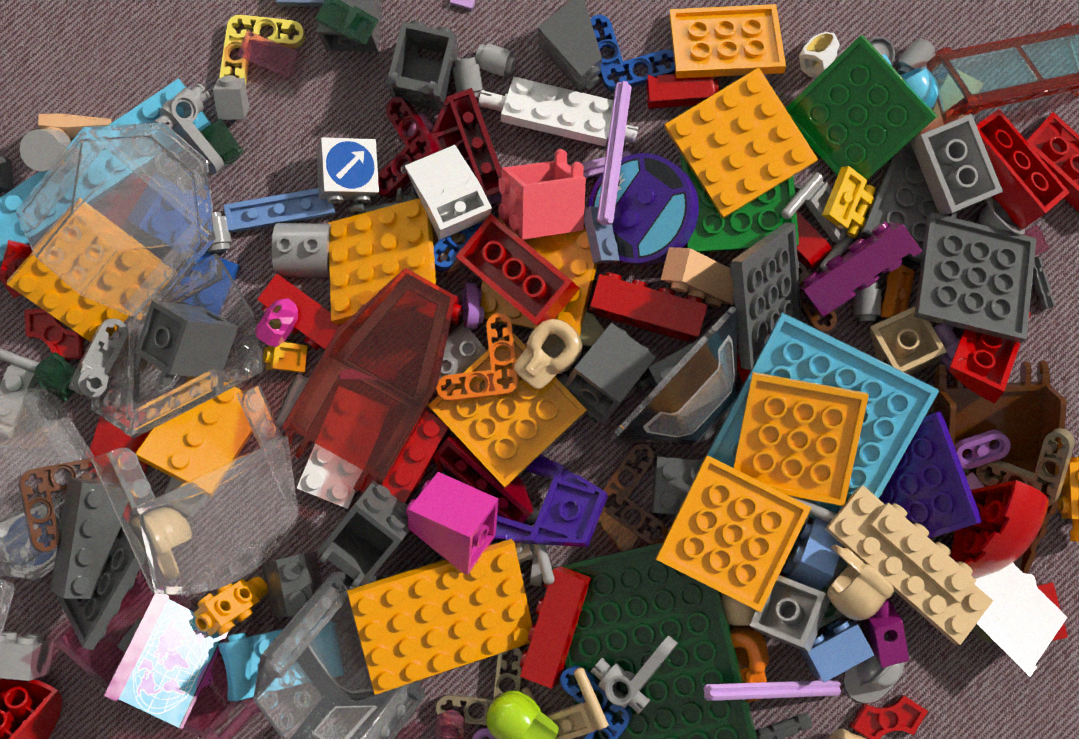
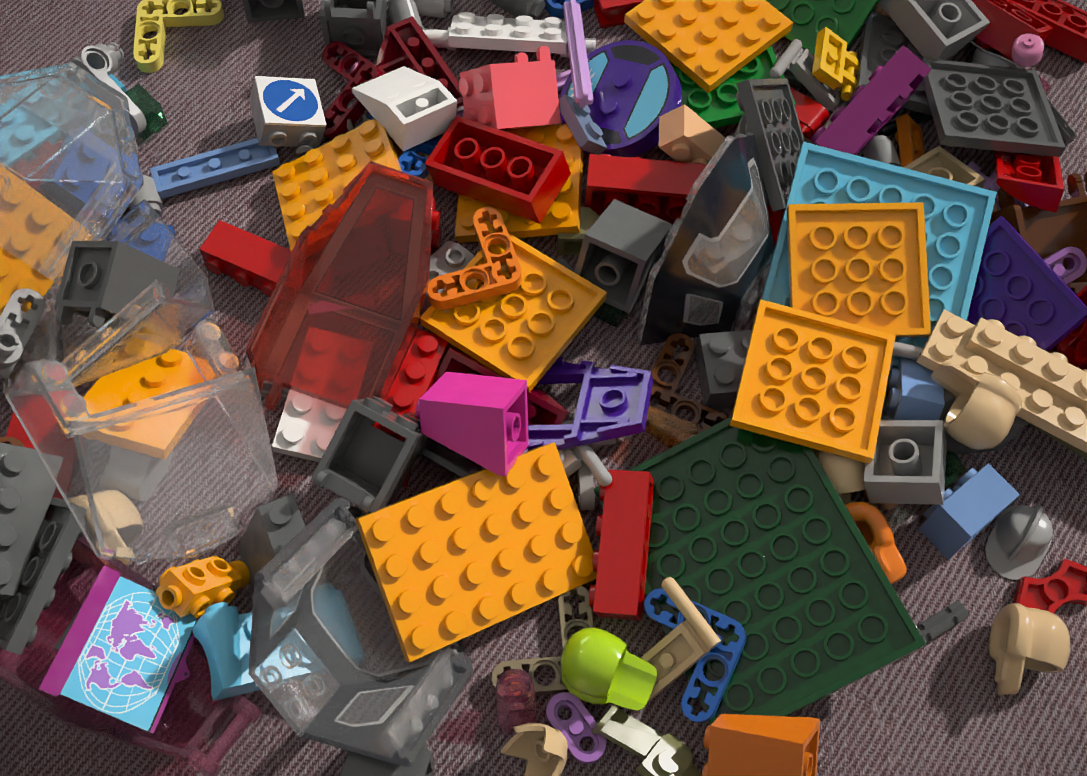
camera: 20 degrees left, 20 degrees down
(231, 98) = (148, 65): light grey brick -> none
(267, 53) = (184, 24): clear pink plate -> none
(277, 322) = (227, 262): dark pink rock -> none
(286, 357) = (239, 308): bracket -> none
(301, 250) = (247, 200): light grey brick -> none
(470, 303) = (452, 221): medium lavender plate -> none
(549, 351) = (545, 243): tan piece -> none
(611, 675) = (709, 583): light grey piece -> none
(764, 690) = (909, 559): lavender axle -> none
(886, 620) = (1025, 471): magenta torso -> none
(1030, 228) = (1027, 50): none -> bright pink piece

